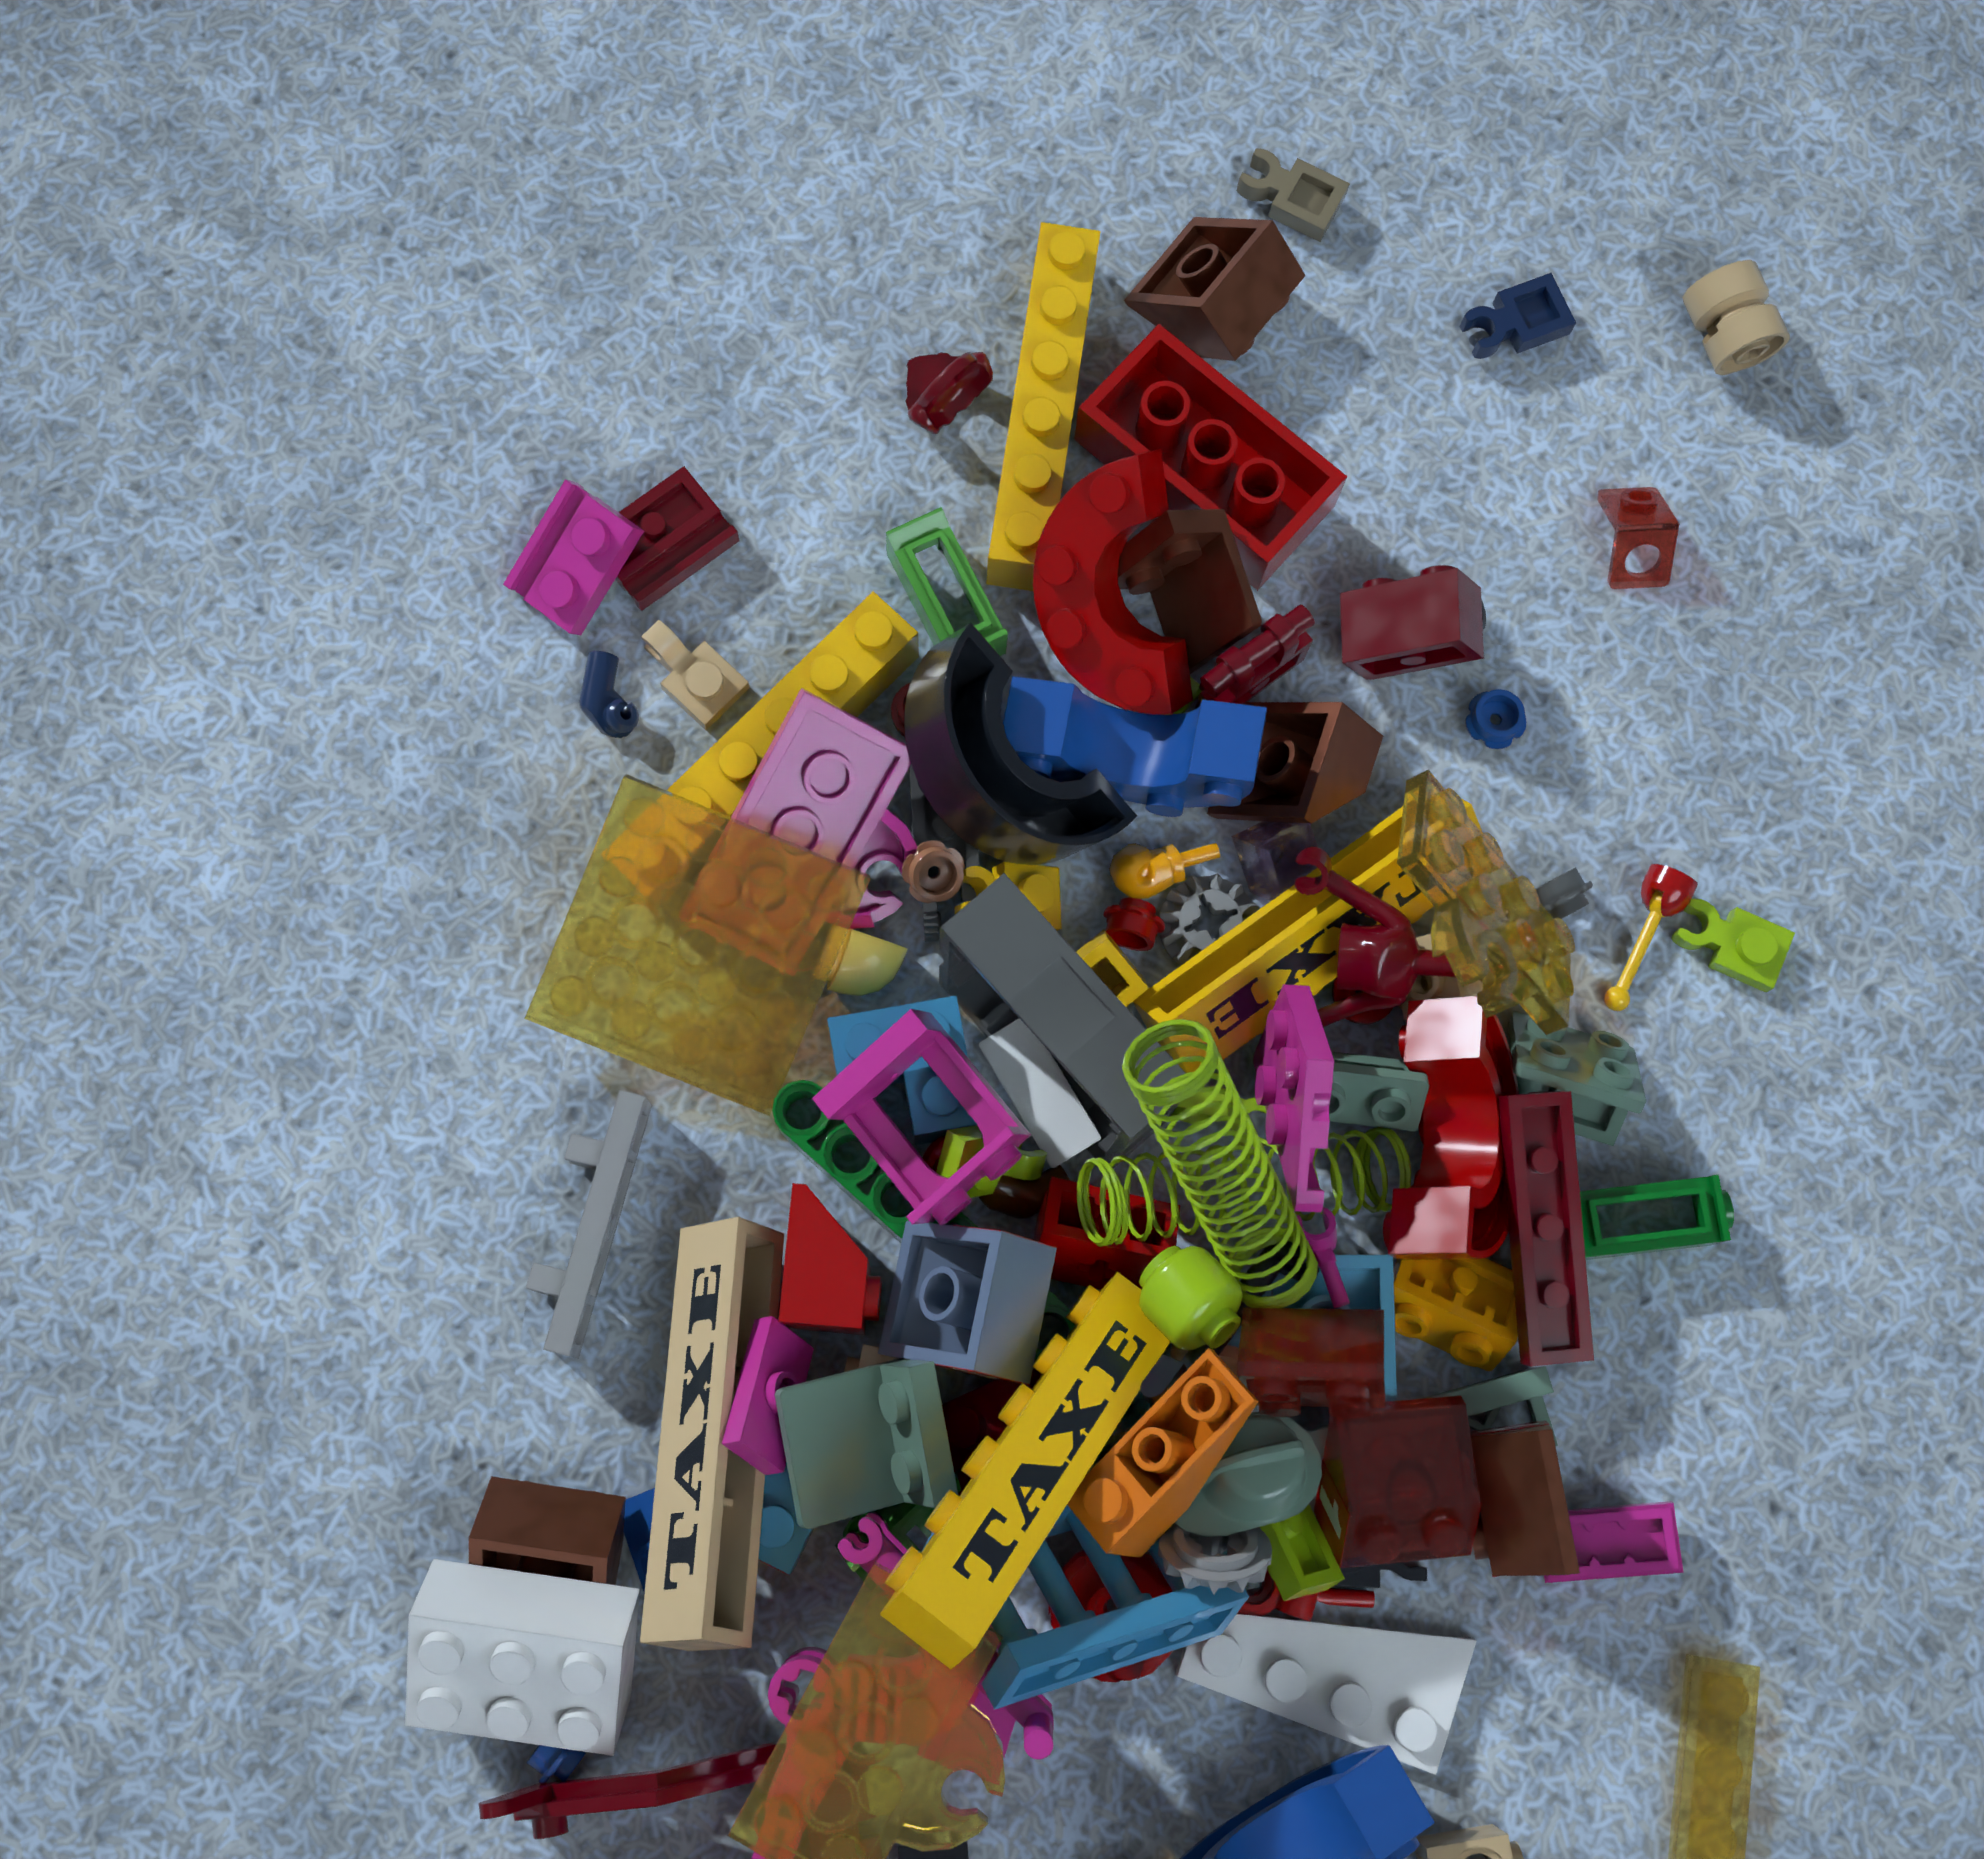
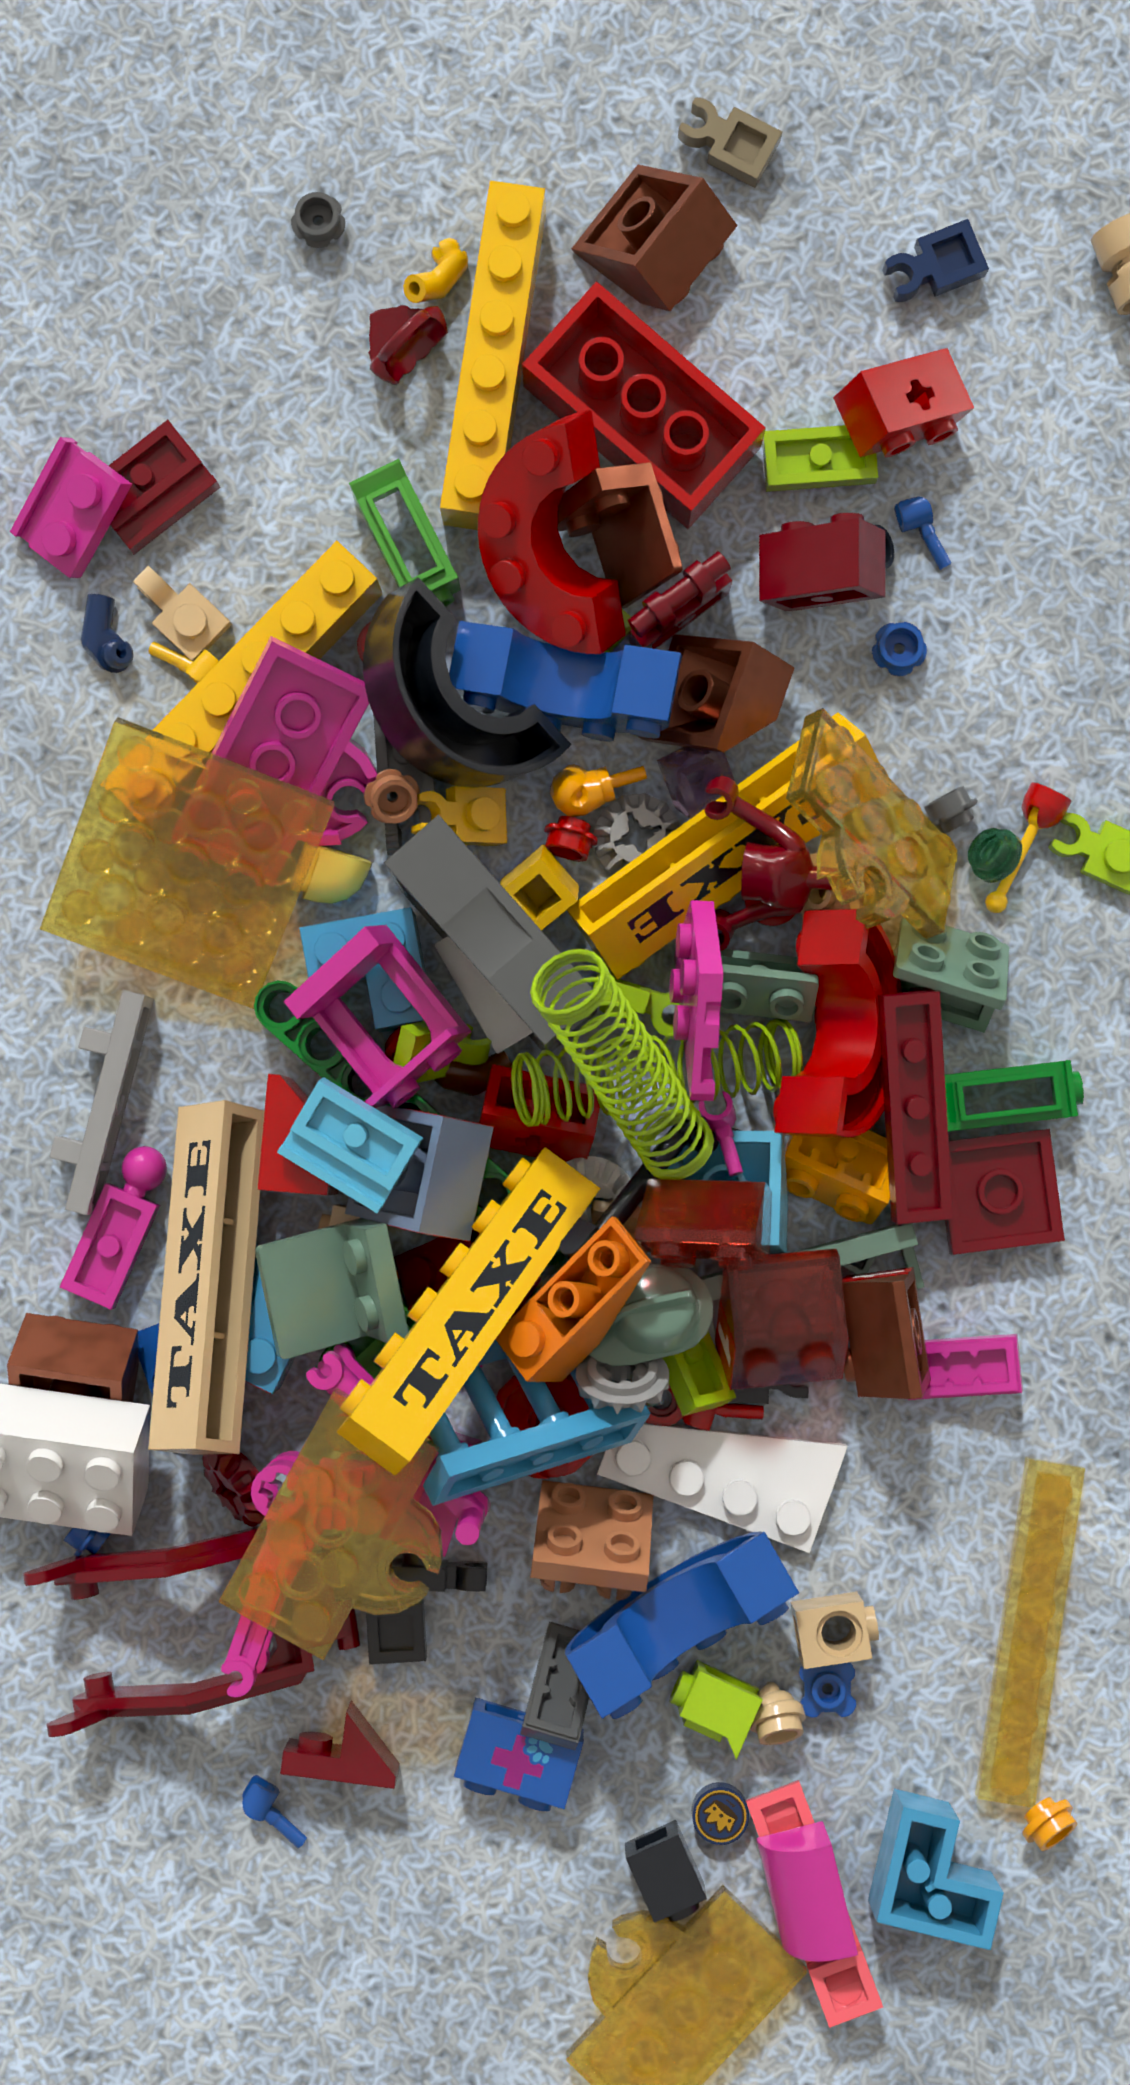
camera: 10 degrees right, 10 degrees up
(601, 1378) = (116, 1231): none -> dark pink plate
(706, 735) = (195, 670): none -> yellow hand
(740, 1690) = (232, 1482): none -> dark red gear
(771, 1362) = (254, 1222): dark pink plate -> none
(850, 251) = (313, 206): none -> dark grey plate
(890, 1266) = (350, 1145): none -> medium azure plate
(983, 329) = (439, 281): none -> yellow arm
(1016, 1805) = (452, 1575): none -> black plate
(1176, 1758) = (592, 1538): none -> nougat plate
(1190, 1297) = (603, 1171): lime head -> none
(1401, 515) = (814, 459): none -> lime plate
(1493, 457) = (904, 403): none -> brick
(1511, 576) = (918, 513): none -> blue hand
(1615, 944) = (994, 854): none -> clear green plate
(1639, 519) = (1037, 459): clear red bracket -> none
(1647, 1333) = (1003, 1192): none -> dark red plate

